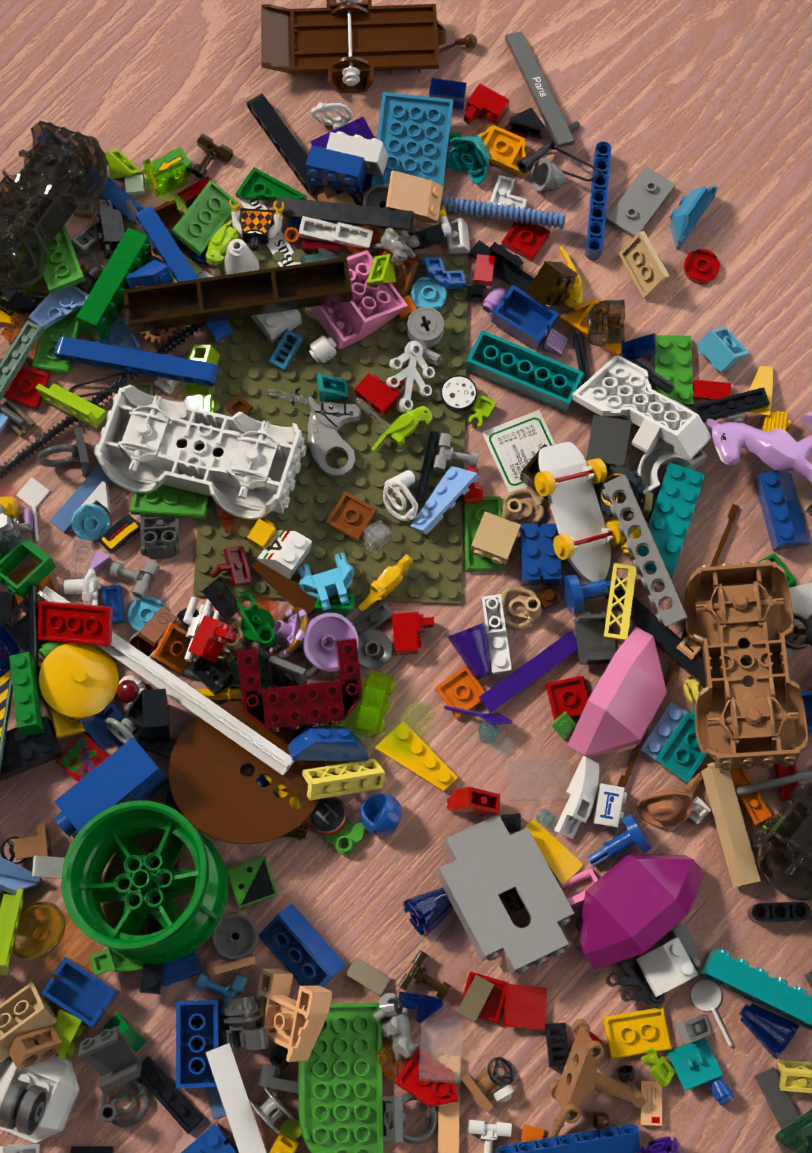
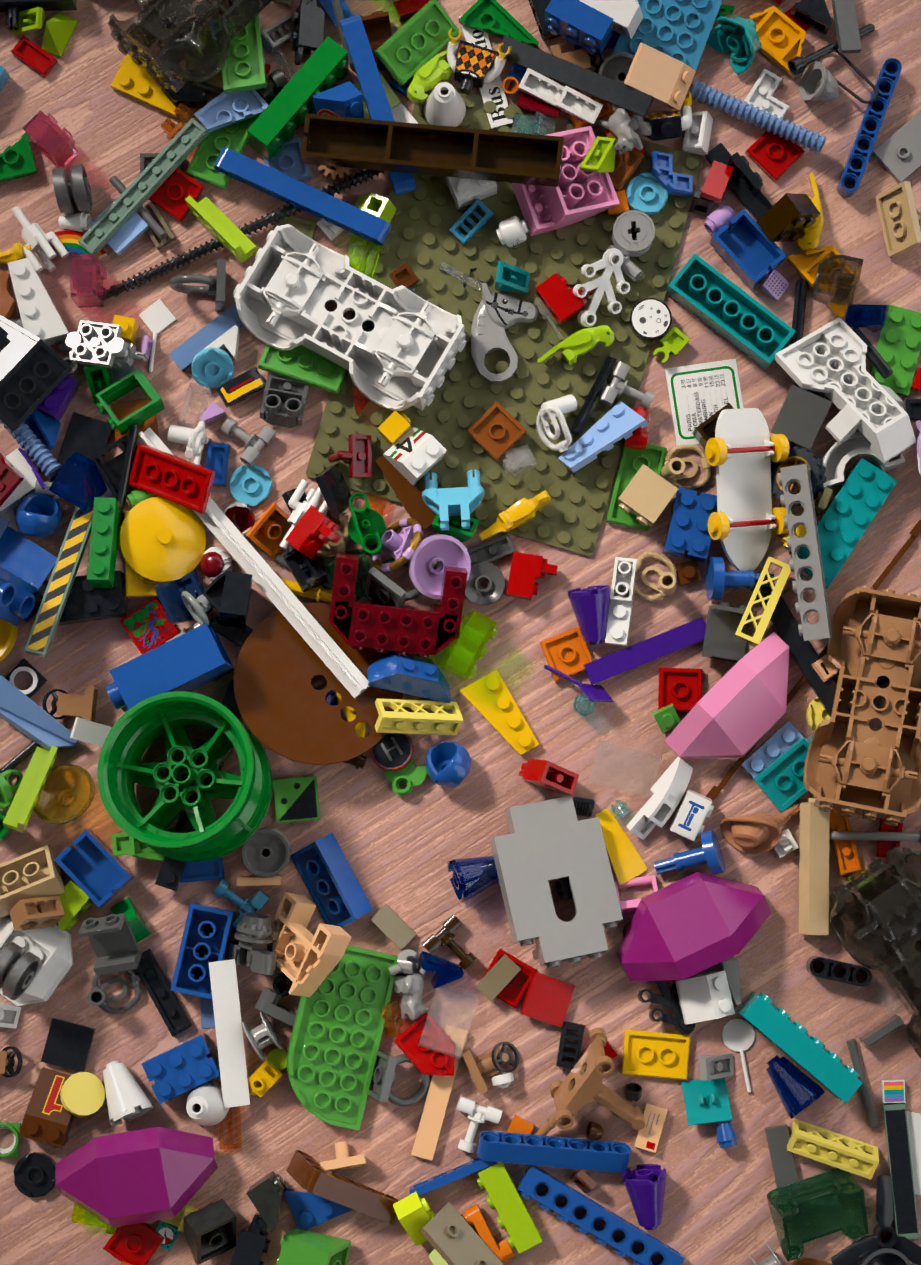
camera: 15 degrees right, 10 degrees up
(99, 379) = (259, 205): black piece -> none
(156, 626) = (258, 502): dark orange tile -> none
(660, 1068) = (669, 1095): lime plate -> none

